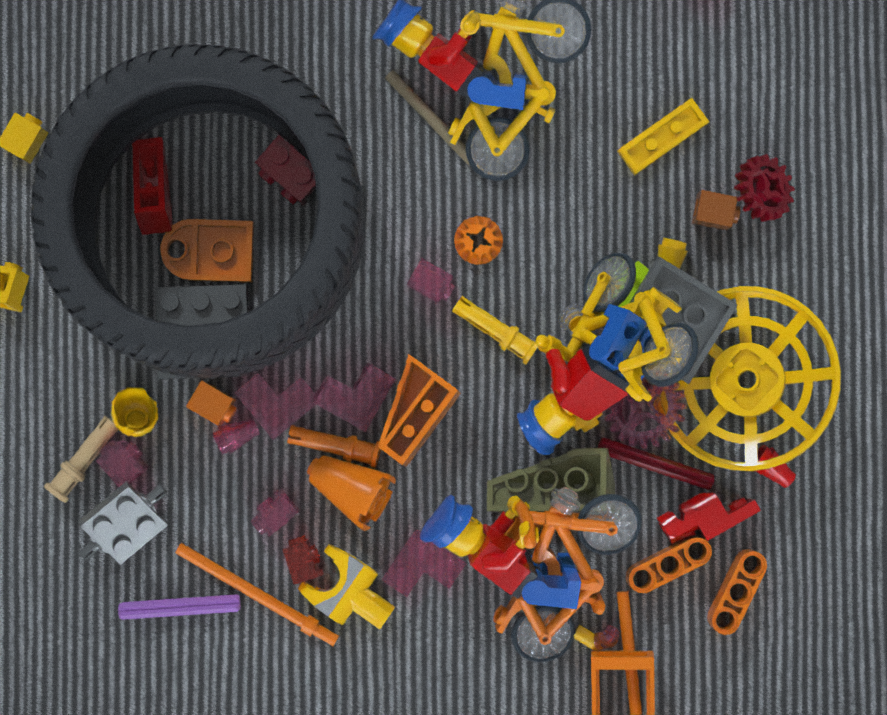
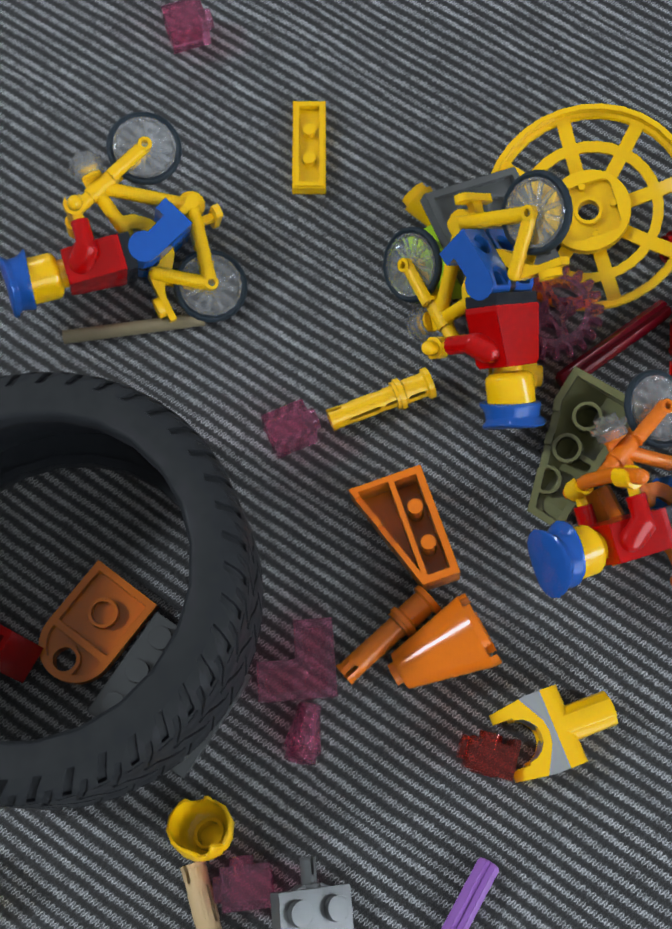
camera: 55 degrees left, 15 degrees down
(212, 403) = (253, 734): orange brick -> none
(274, 513) = (418, 750): clear pink brick -> none
(288, 169) = (78, 487): dark red bracket -> none
(309, 625) = (562, 799): orange bar -> none
(357, 404) = (361, 578): clear pink plate -> none
(419, 558) = (562, 633): clear pink plate -> none
(482, 254) = (278, 375): orange gear -> none
(715, 210) = (409, 143): dark orange brick -> none
(764, 188) = (420, 90): dark red gear -> none

